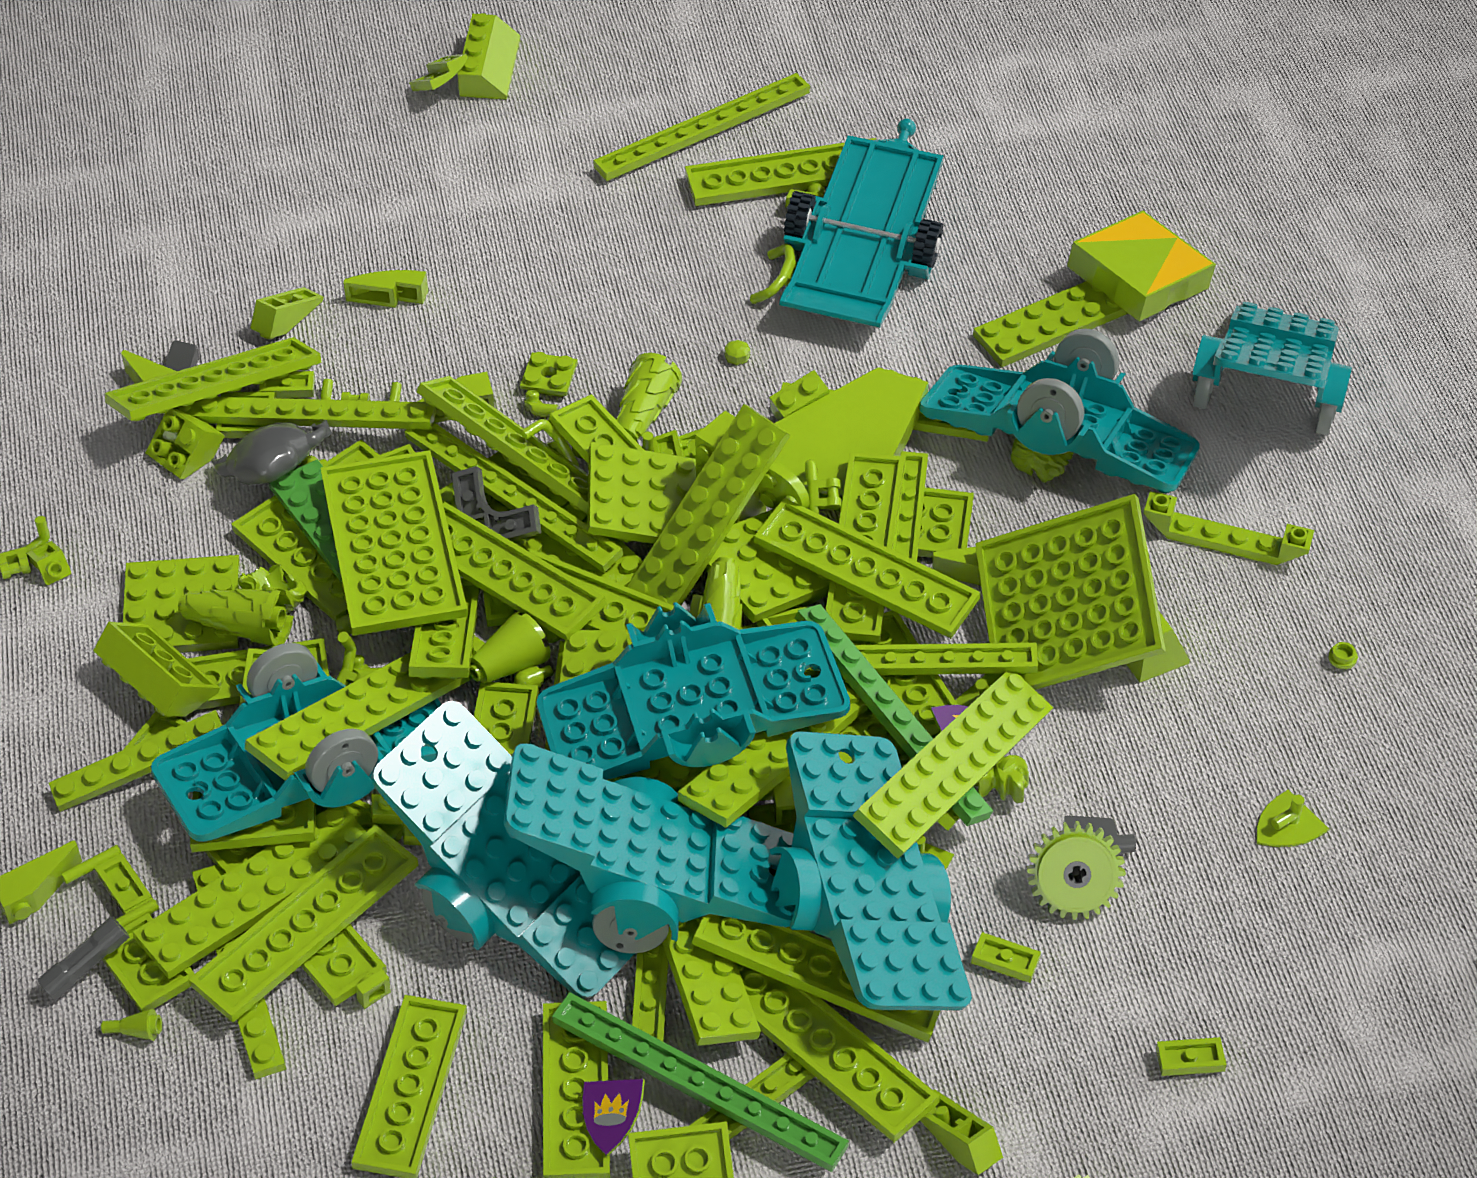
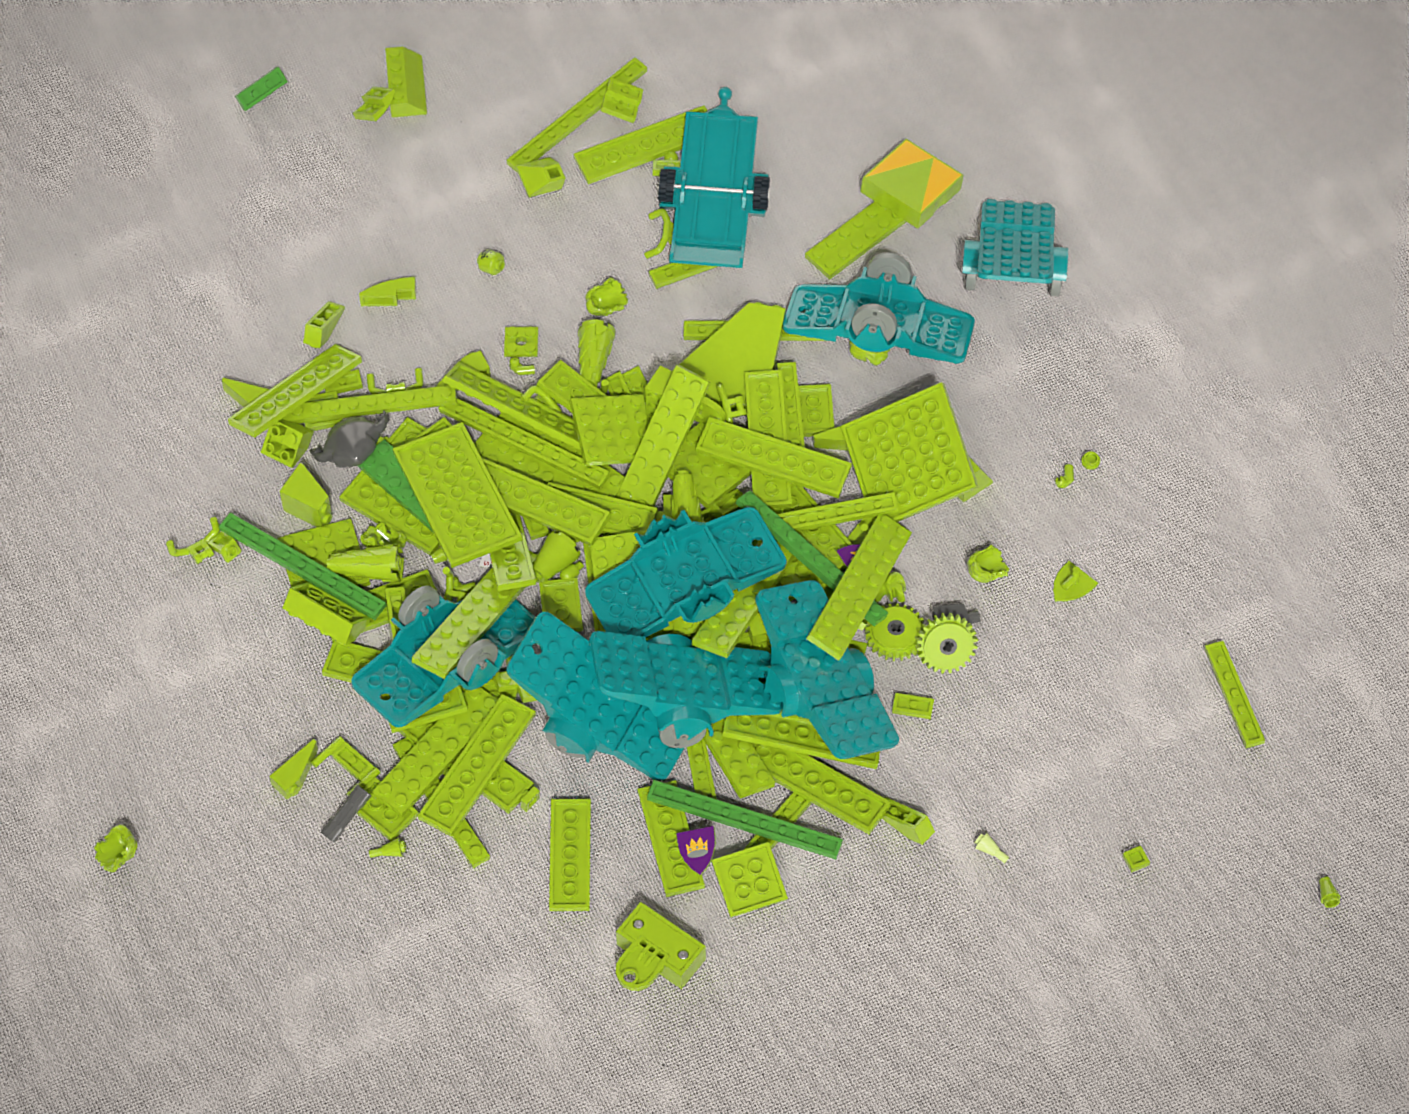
camera: 10 degrees left, 10 degrees up
(126, 764) = (332, 678): lime plate -> none
(146, 603) = (302, 566): none -> bright green plate
(179, 514) = (306, 498): none -> lime slope
(182, 356) = (262, 374): dark grey slope -> none
(300, 38) = (261, 88): none -> bright green plate
(472, 501) = (499, 454): dark grey plate -> none
(536, 272) = (491, 262): none -> lime head
(633, 186) = (541, 176): none -> lime slope
(681, 337) = (606, 298): none -> lime hair
(737, 352) = (646, 301): lime tile -> none
(766, 116) = (621, 100): none -> lime slope
(792, 323) = (675, 272): none -> lime plate
(797, 395) = (699, 333): lime brick -> none
(998, 846) = (896, 634): none -> lime gear
(1160, 772) = (987, 565): none -> lime hair
(1191, 1056) = (1035, 748): lime plate -> none
(1224, 537) = (1001, 385): lime slope -> none
(1303, 675) = (1068, 477): none -> lime arm

